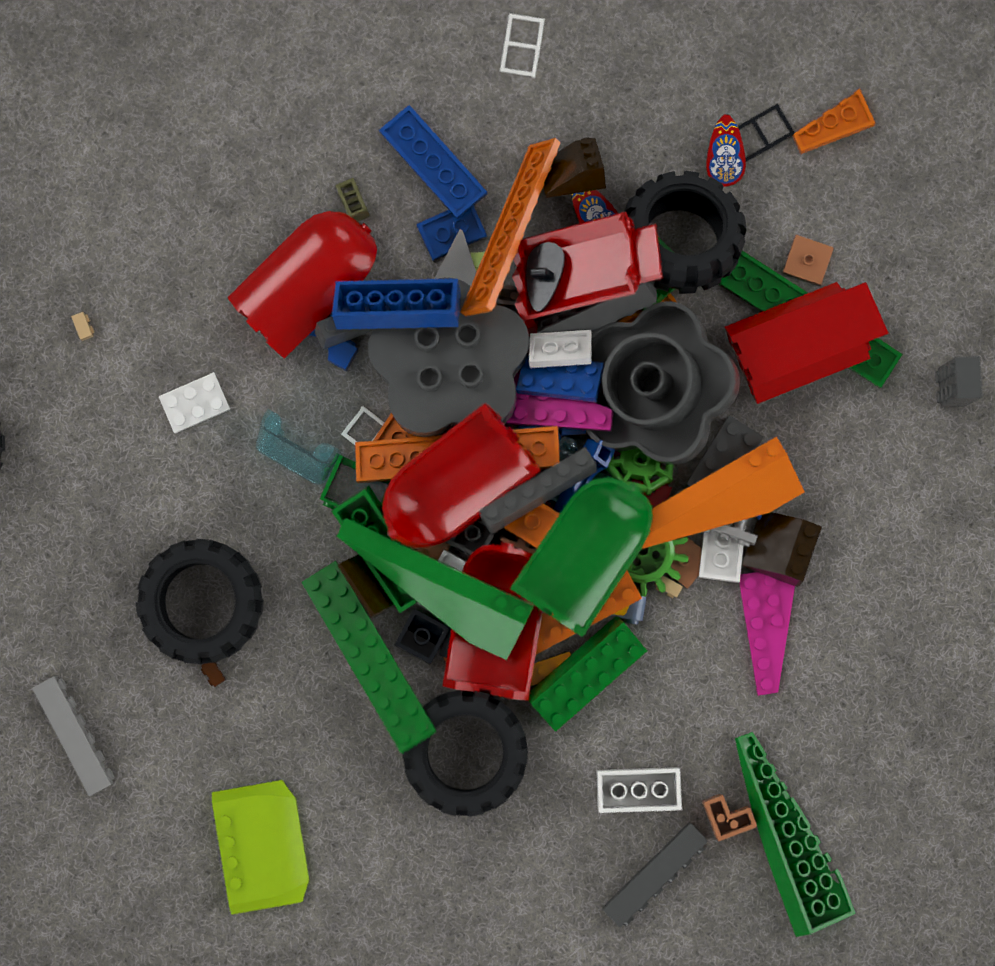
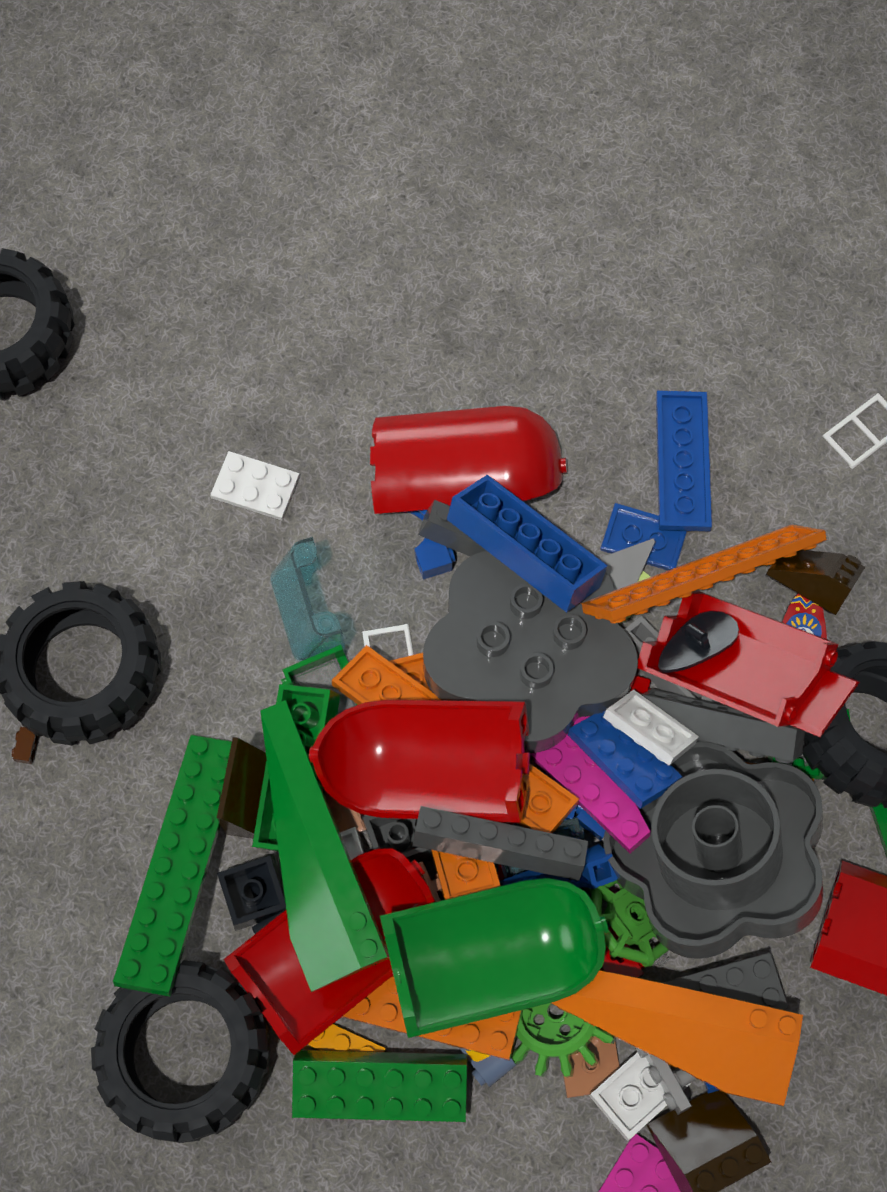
camera: 45 degrees right, 15 degrees down
(82, 326) = (223, 334): tan piece -> none
(362, 212) = (569, 447): olive slope -> none
(672, 588) = (551, 1080): tan piece -> none

